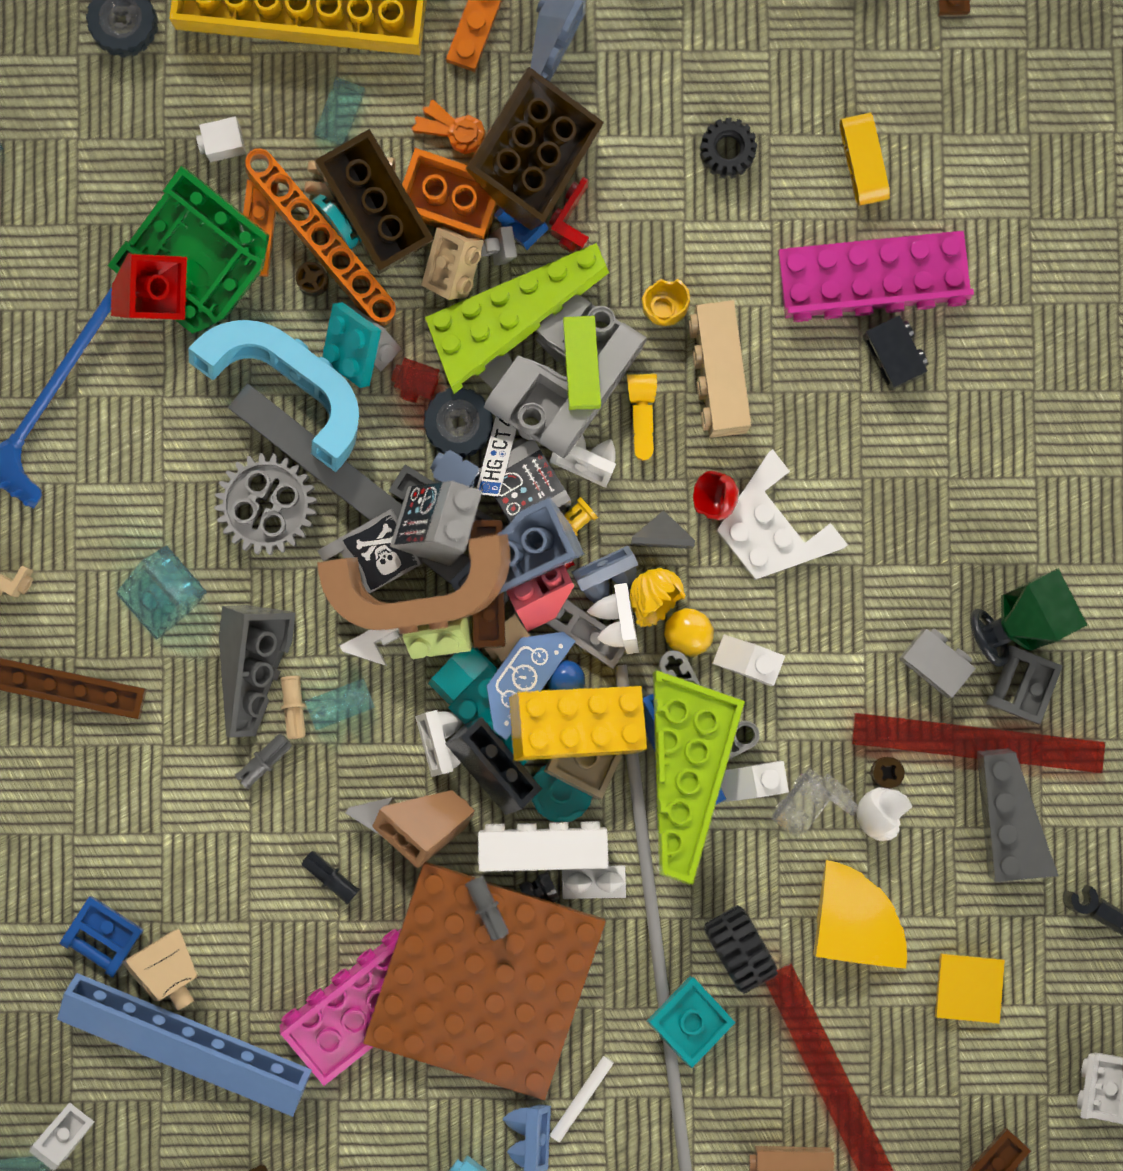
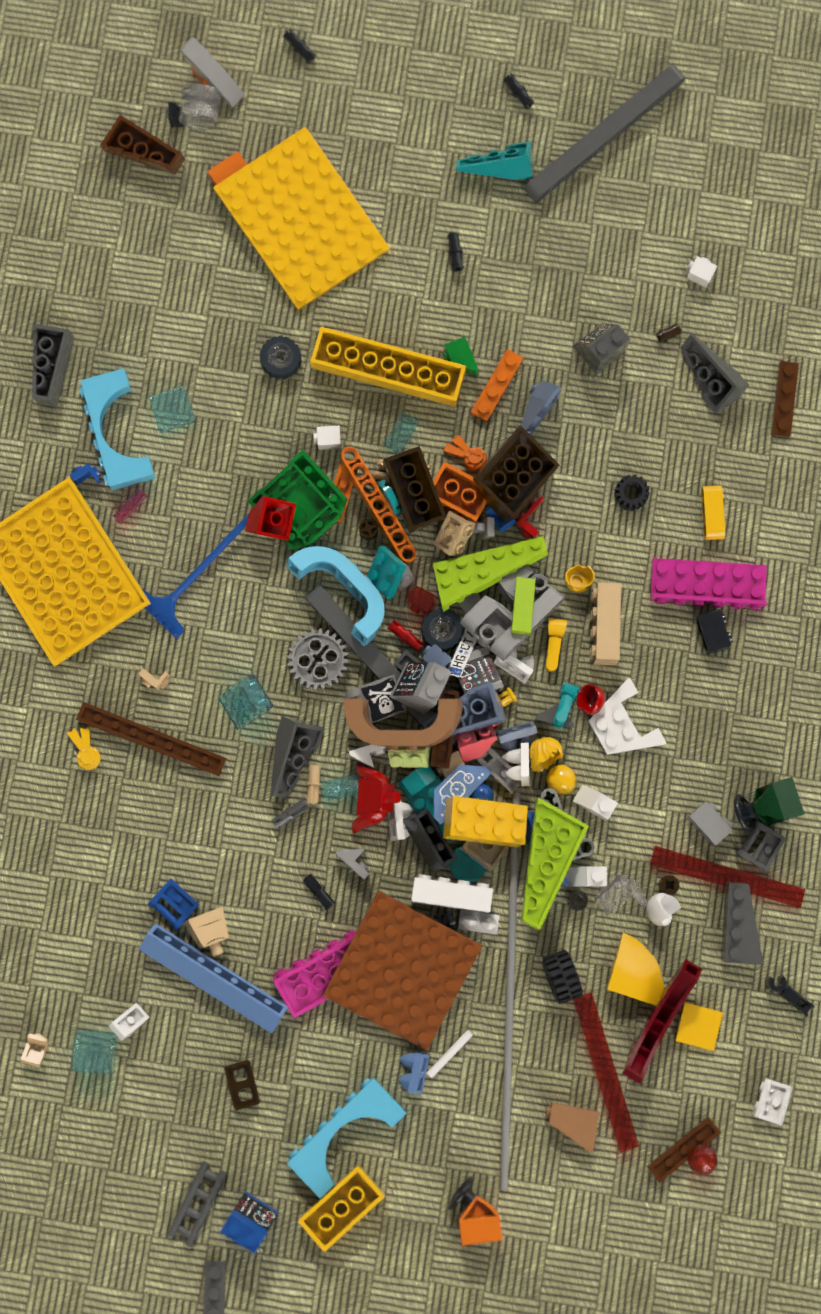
camera: 10 degrees right, 5 degrees down
(393, 713) = (374, 799): none -> red torso
(400, 442) = (405, 635): none -> red pin
(423, 824) = (381, 868): medium nougat slope -> none
(487, 908) = (412, 924): dark grey axle -> none
(678, 493) = (568, 694): none -> teal piece
(690, 1021) = (524, 1017): teal plate -> none
(741, 822) = (575, 902): none -> clear smoke wheel
(905, 993) = (660, 1019): none -> dark red arch

